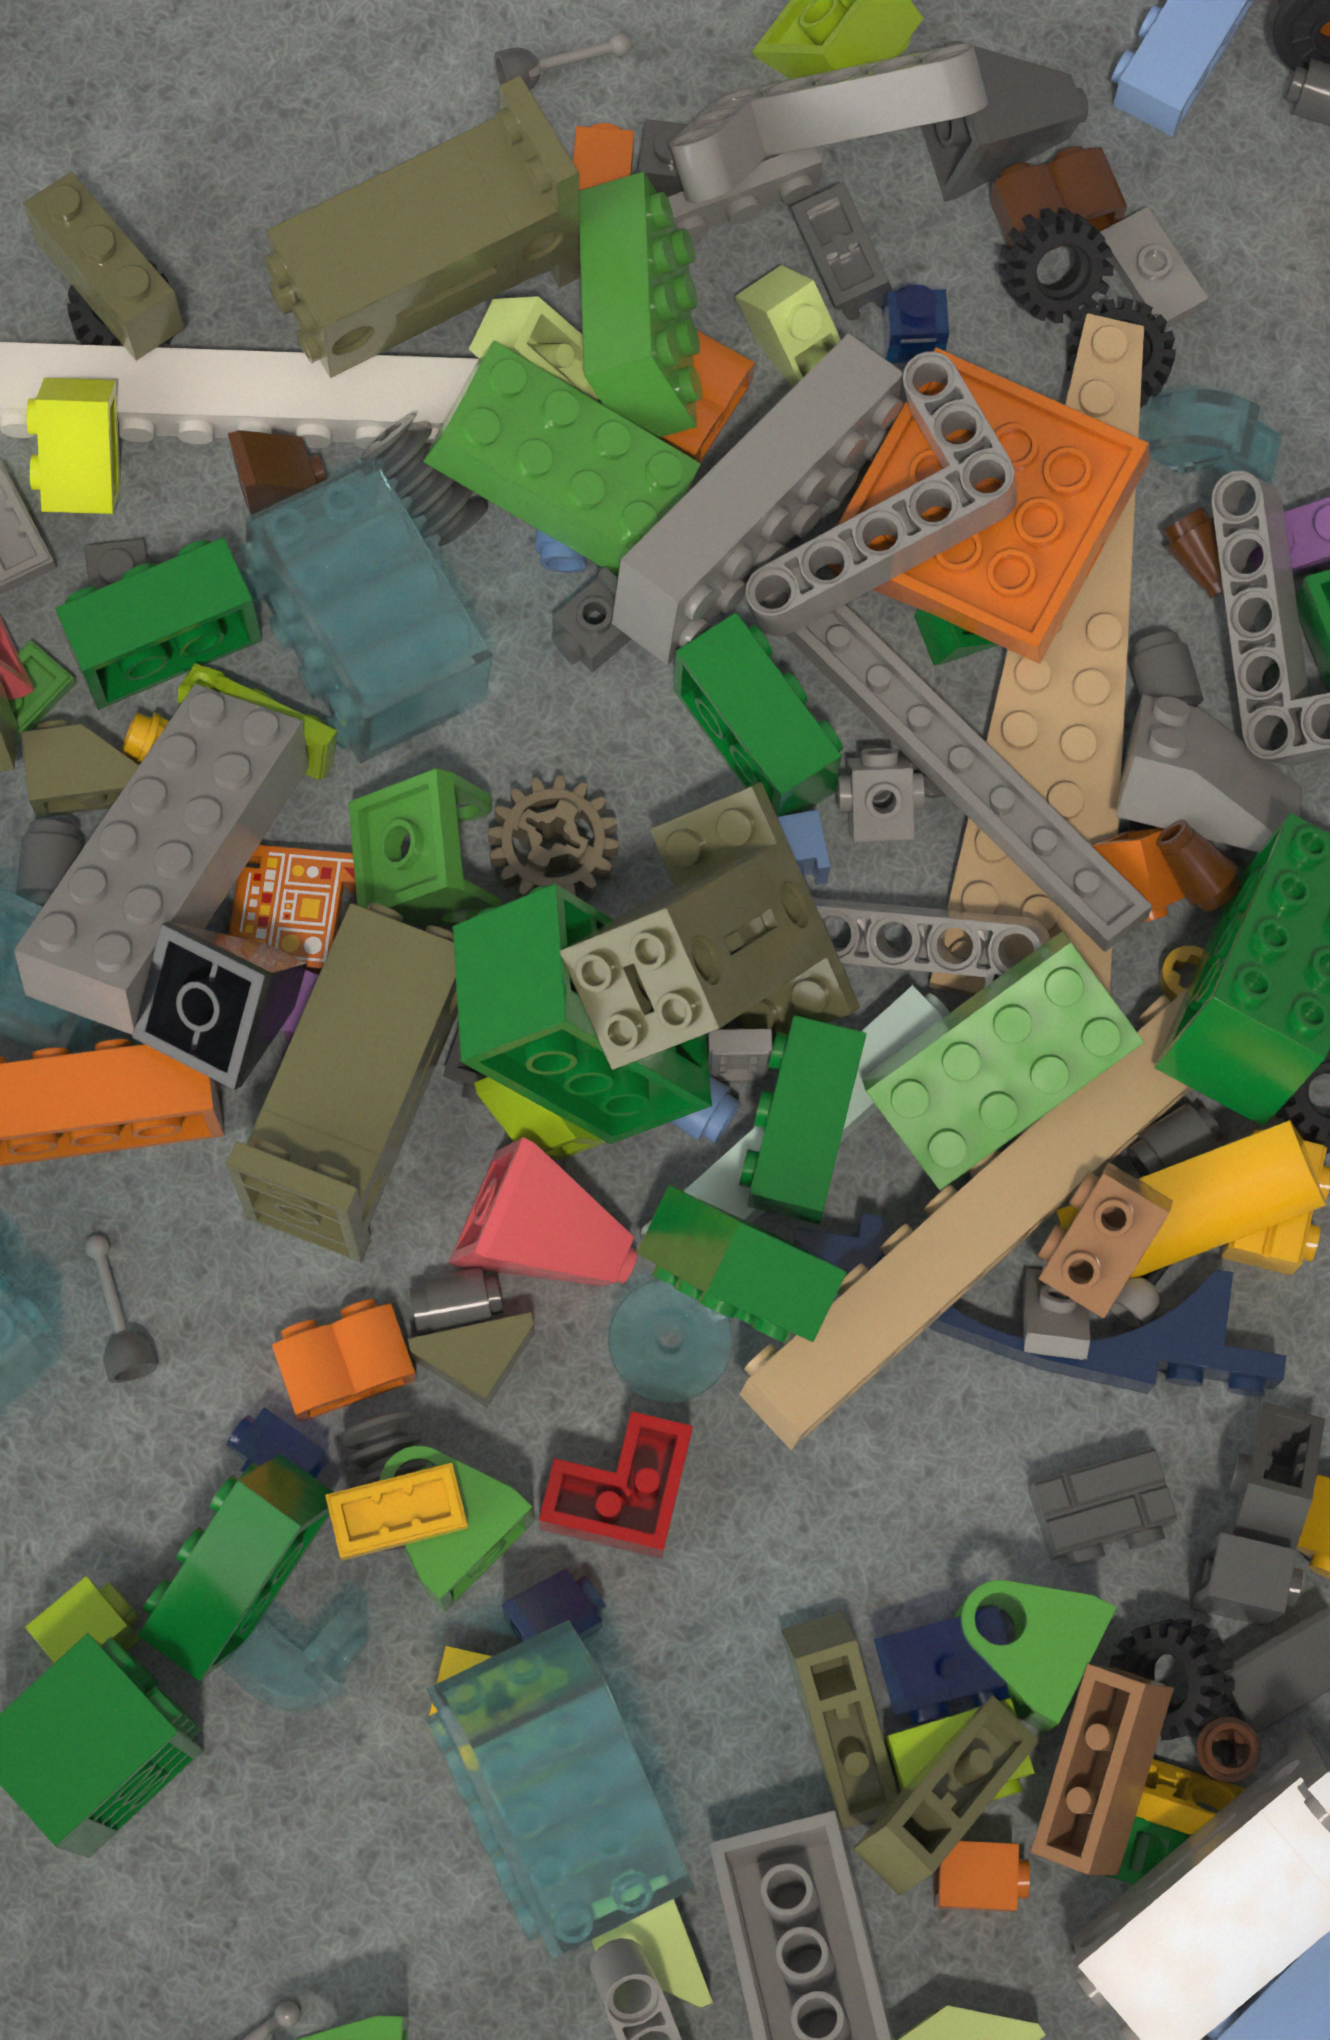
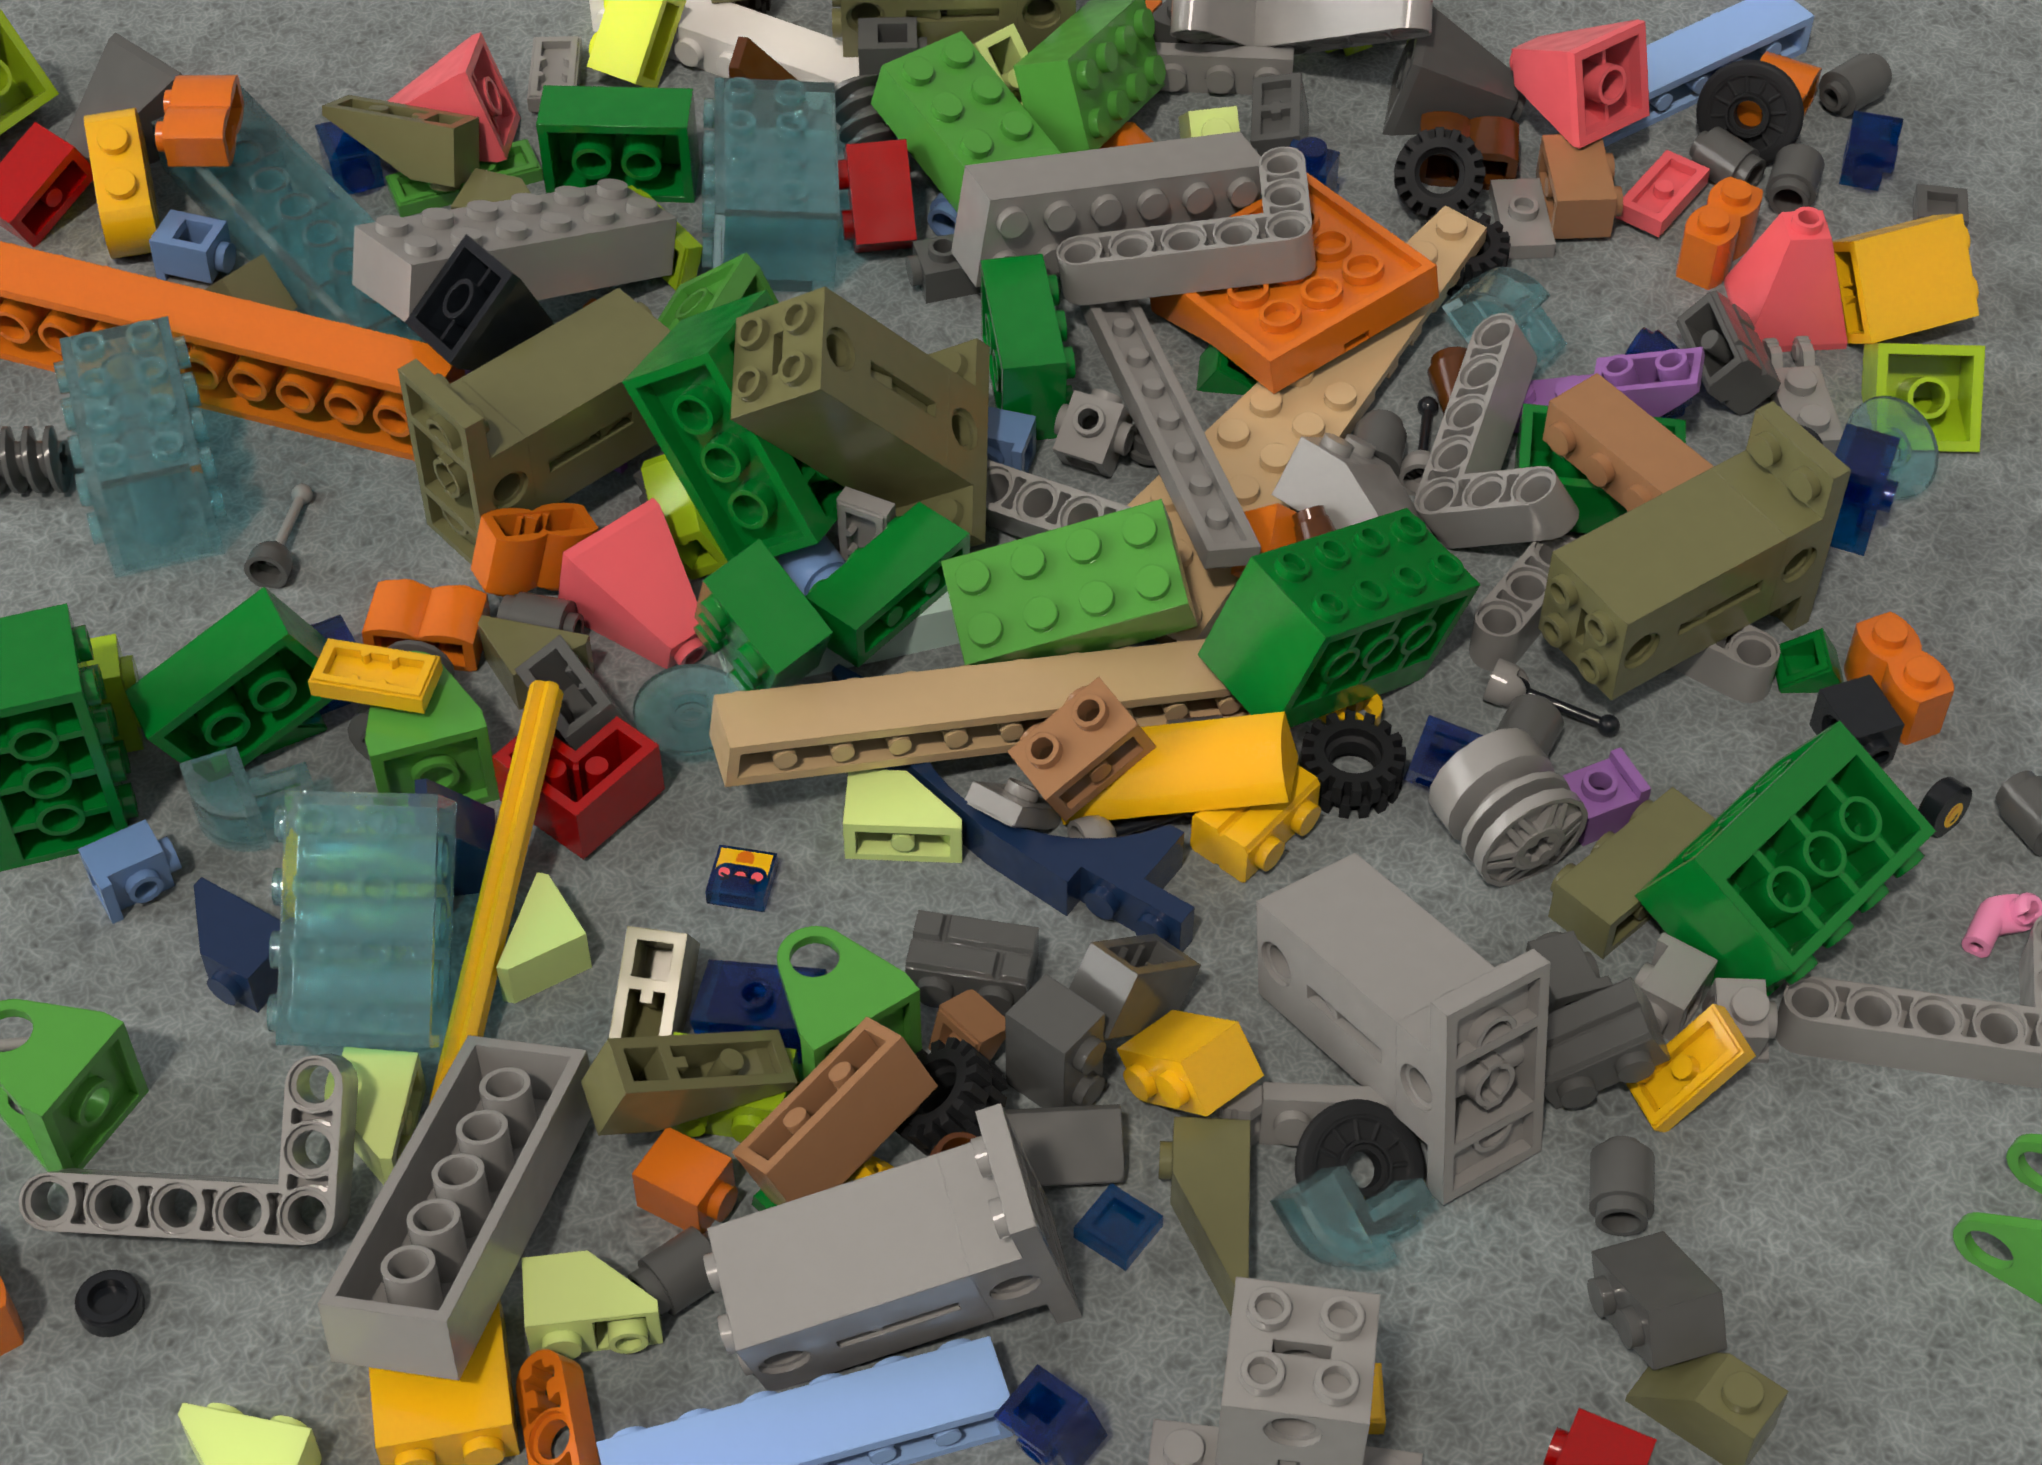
camera: 30 degrees right, 25 degrees down
(241, 1797) = (129, 867): none -> medium blue brick
(388, 346) = (886, 40): none -> dark grey brick
(407, 1833) = (235, 946): none -> dark blue slope
(409, 1229) = (526, 546): none -> orange brick
(489, 571) = (878, 195): none -> red brick
(564, 1397) = (584, 703): none -> dark grey brick
(636, 1668) = (502, 872): none -> yellow axle
(693, 1679) = (543, 945): none -> yellowish green slope
(826, 1506) = (741, 878): none -> clear blue tile
(944, 1373) = (898, 820): none -> yellowish green slope
(1025, 1969) = (675, 1271): none -> dark grey brick
(1144, 1585) = (970, 1019): none -> medium nougat slope
(1160, 80) = (1586, 79): none -> coral slope
(1201, 209) = (1578, 188): none -> medium nougat brick
(1215, 676) = (1418, 459): none -> hinge
(1284, 171) = (1663, 193): none -> coral plate

